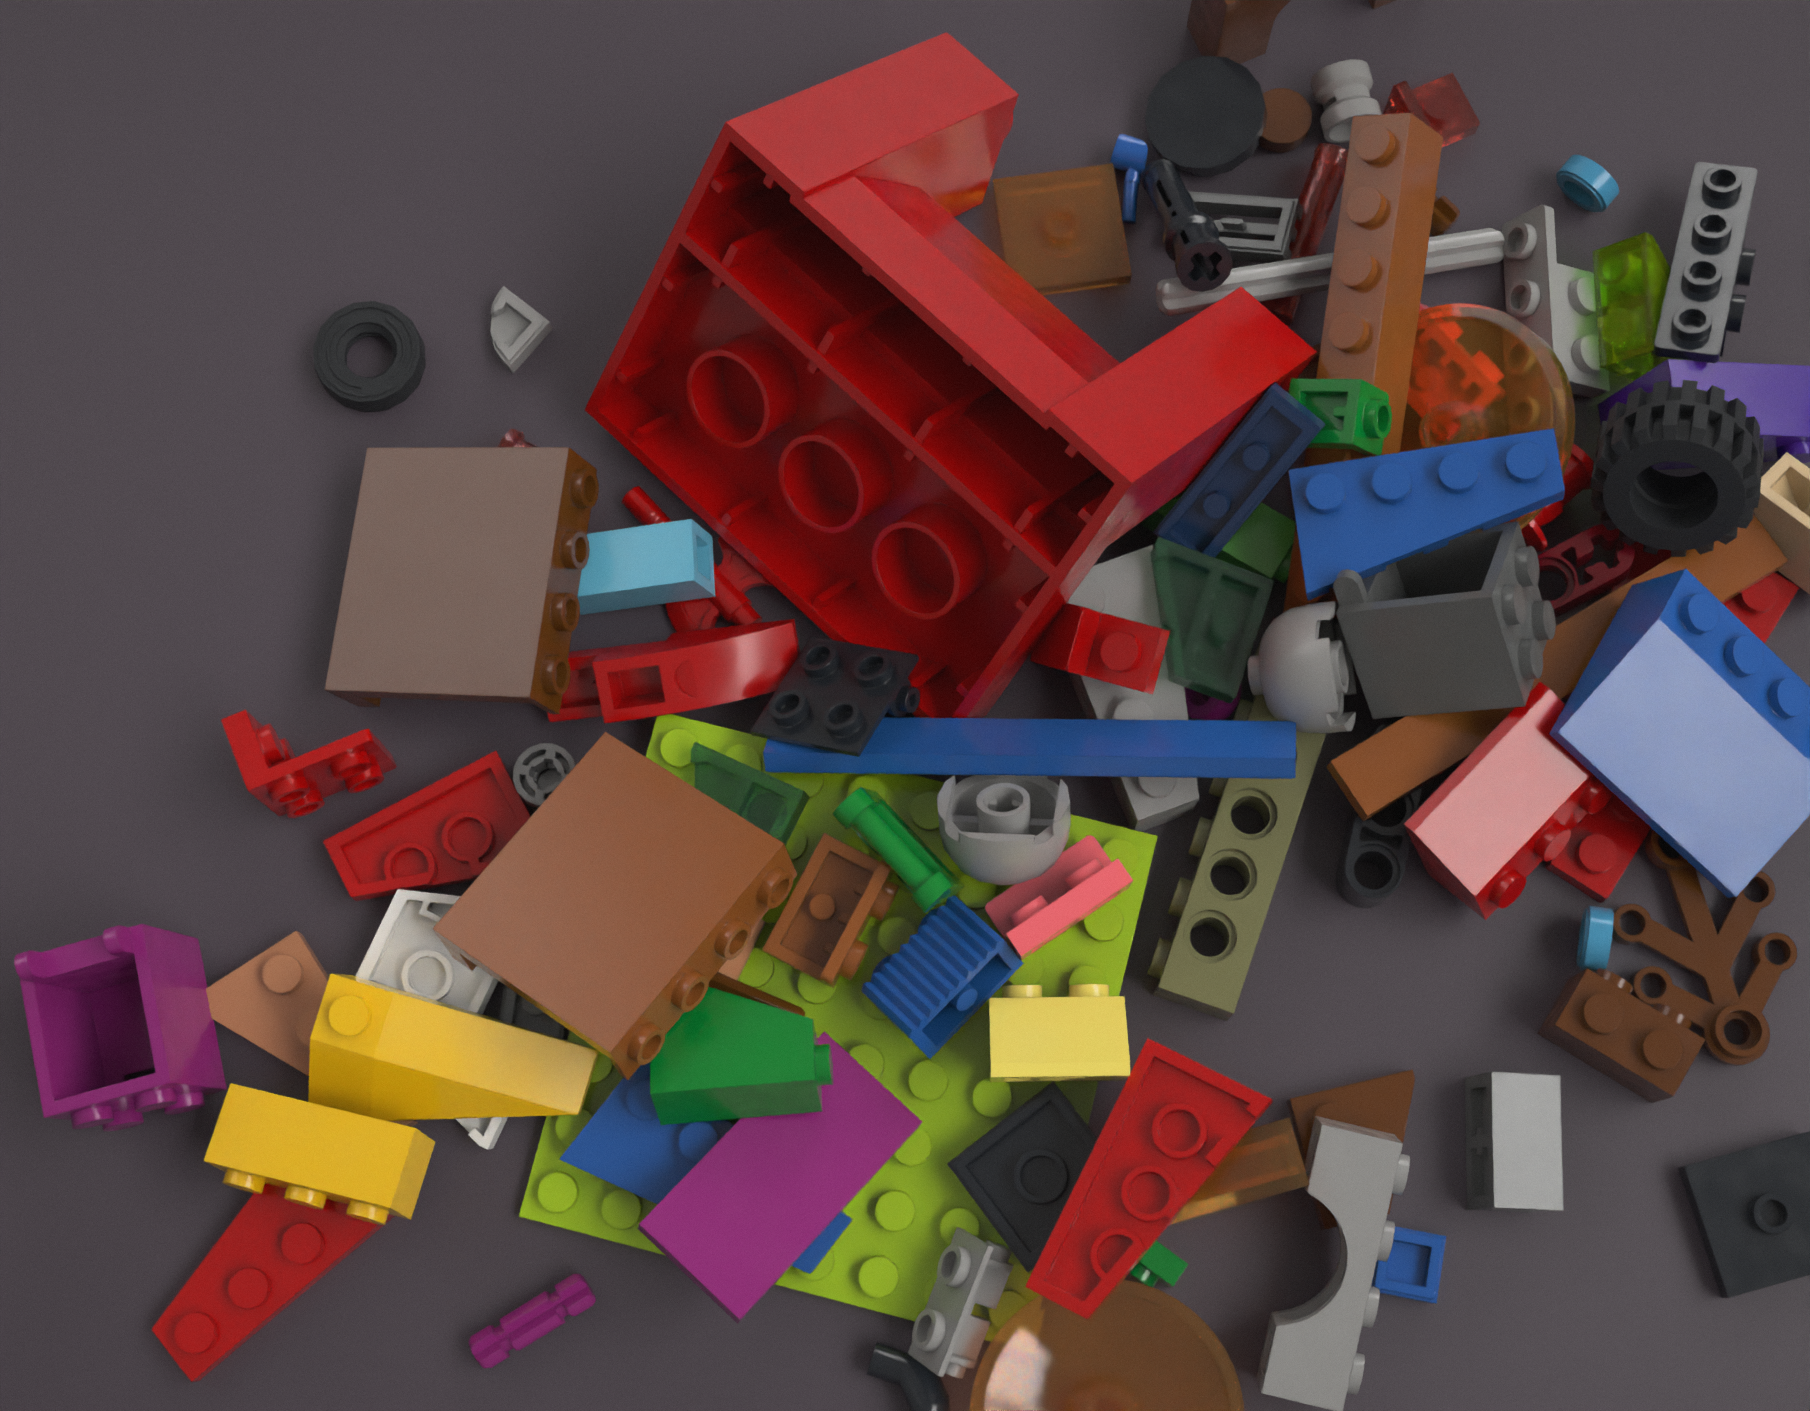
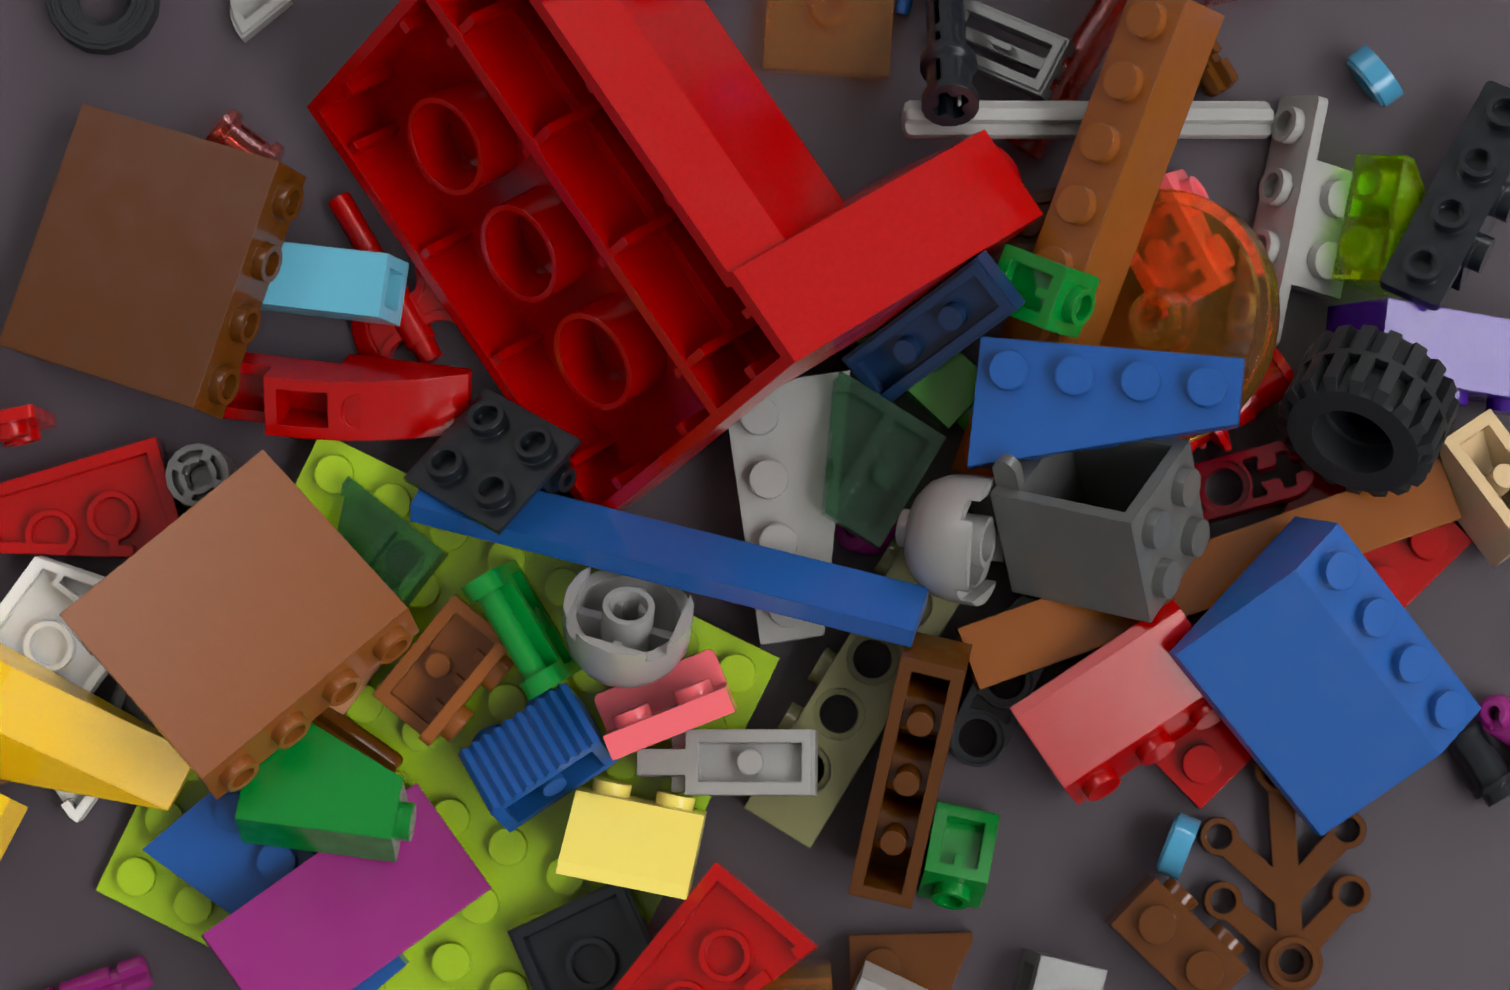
camera: 10 degrees right, 10 degrees up
(1103, 648) = (760, 472): red slope -> none
(1141, 940) = (737, 762): none -> light grey hinge
(1318, 911) = (910, 769): none -> reddish brown brick
(1380, 997) = (958, 856): none -> green bracket

